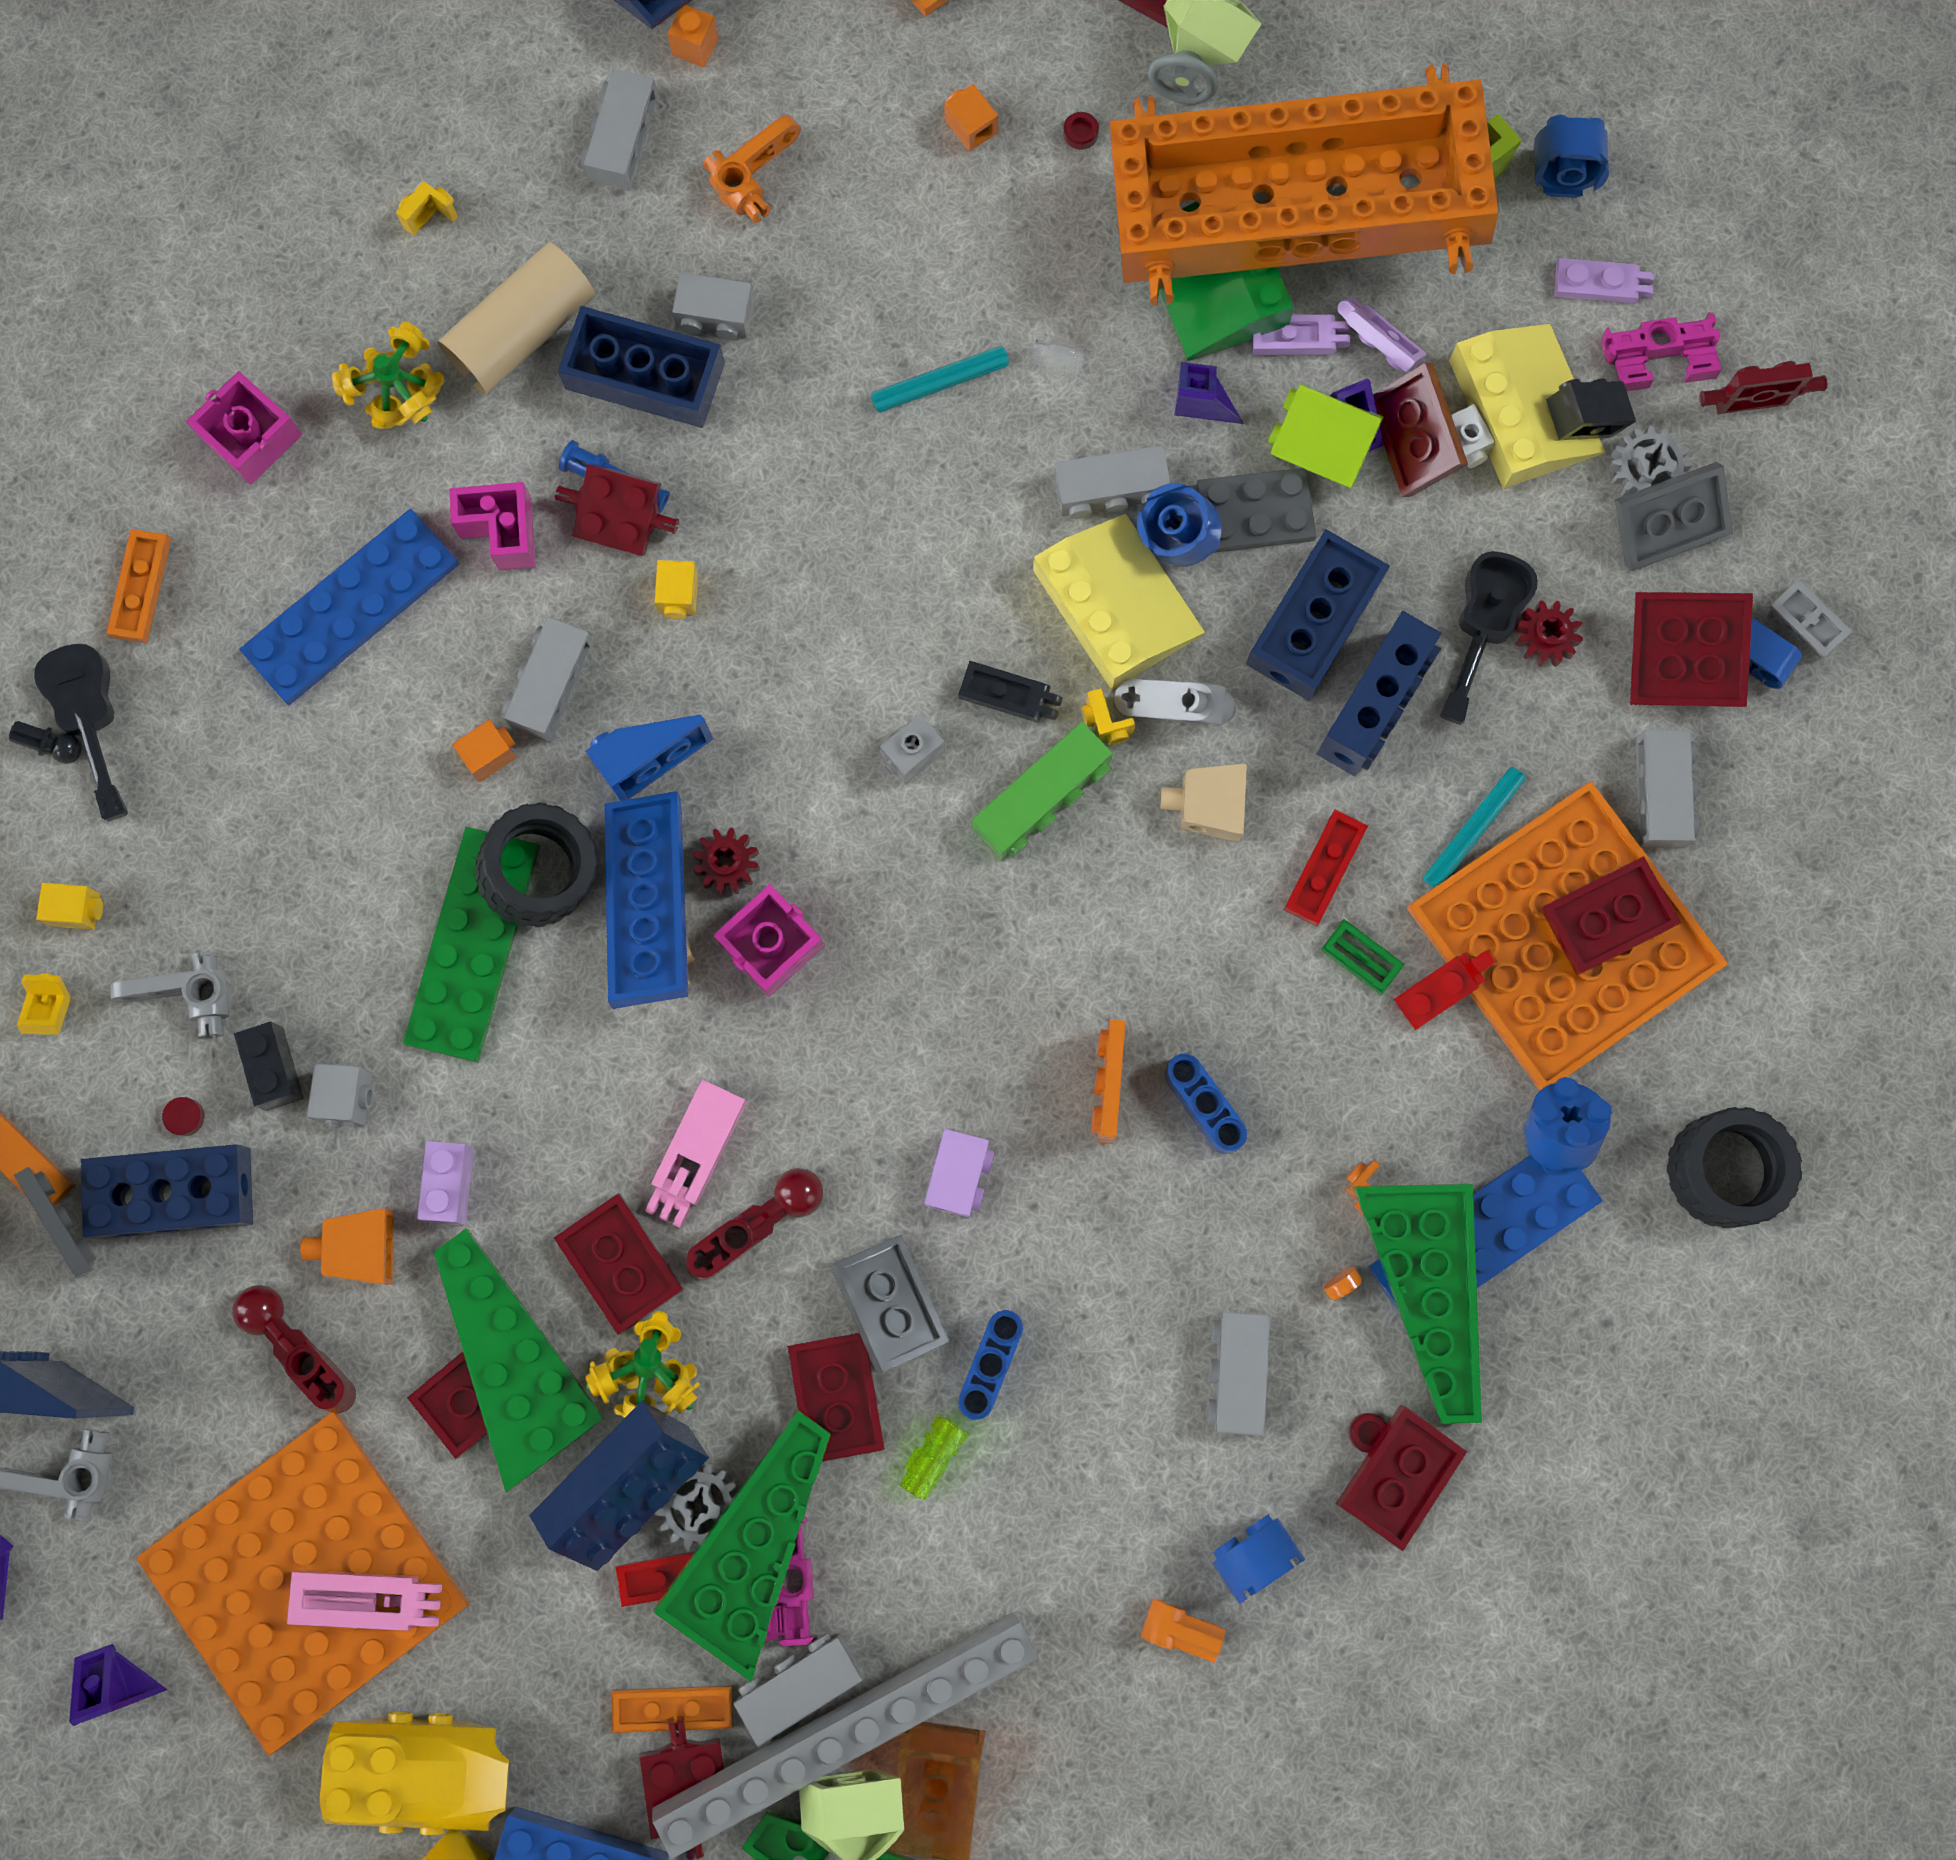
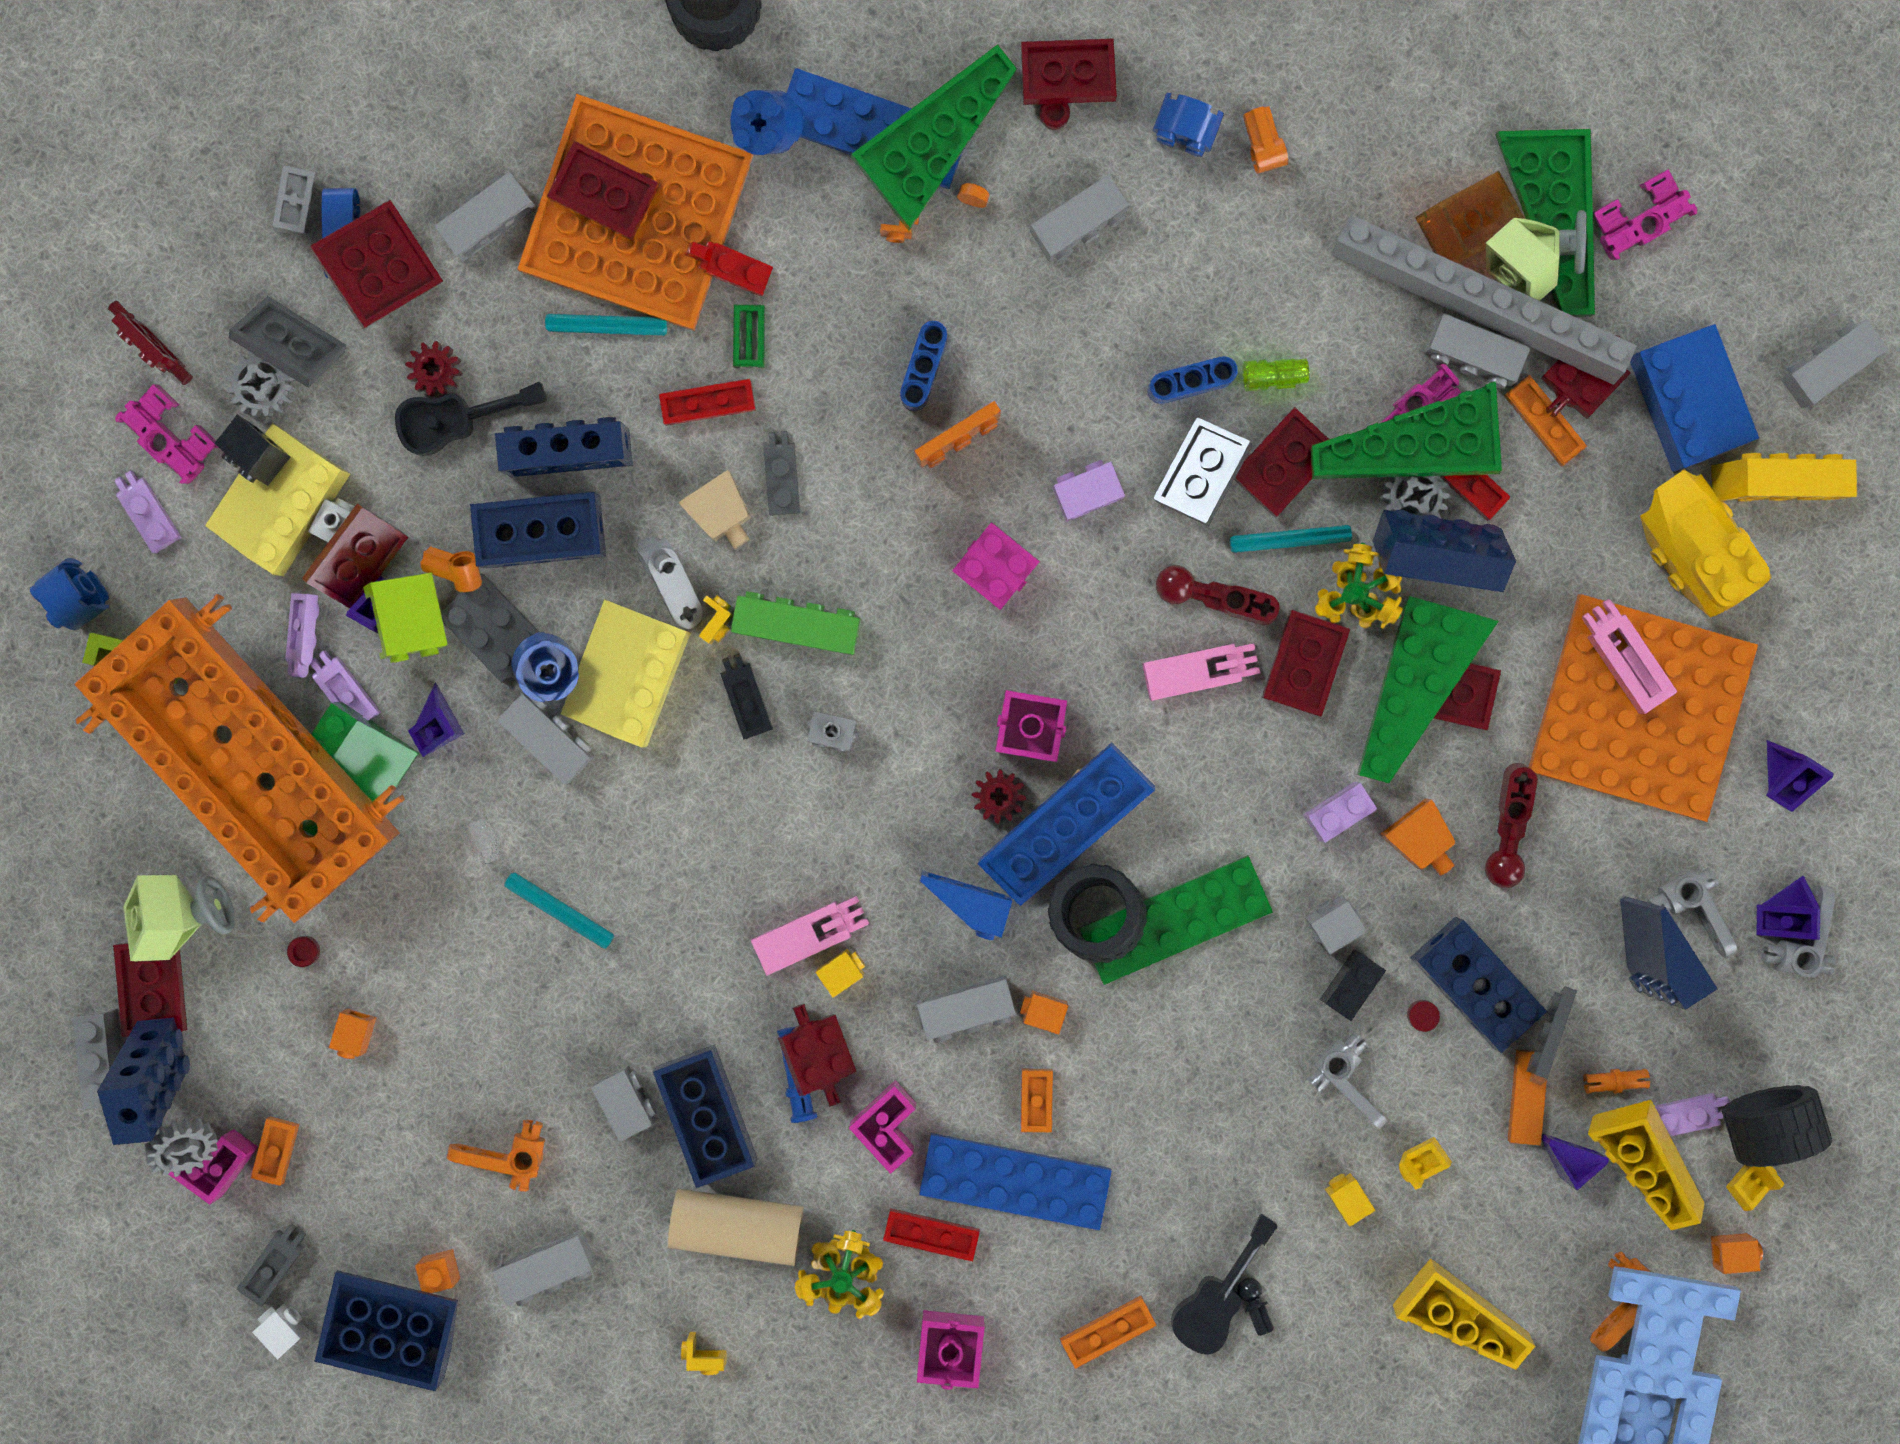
camera: 125 degrees left, 10 degrees up
(364, 491) = (931, 1234): none -> red plate
(408, 681) = (1036, 1100): none -> orange plate
(741, 571) = (799, 940): none -> bright pink hinge
(754, 1345) = (1290, 538): none -> teal axle
(952, 1025) = (996, 566): none -> dark pink brick
(1200, 887) = (781, 476): none -> dark grey hinge
(1340, 511) = (455, 567): none -> orange piece

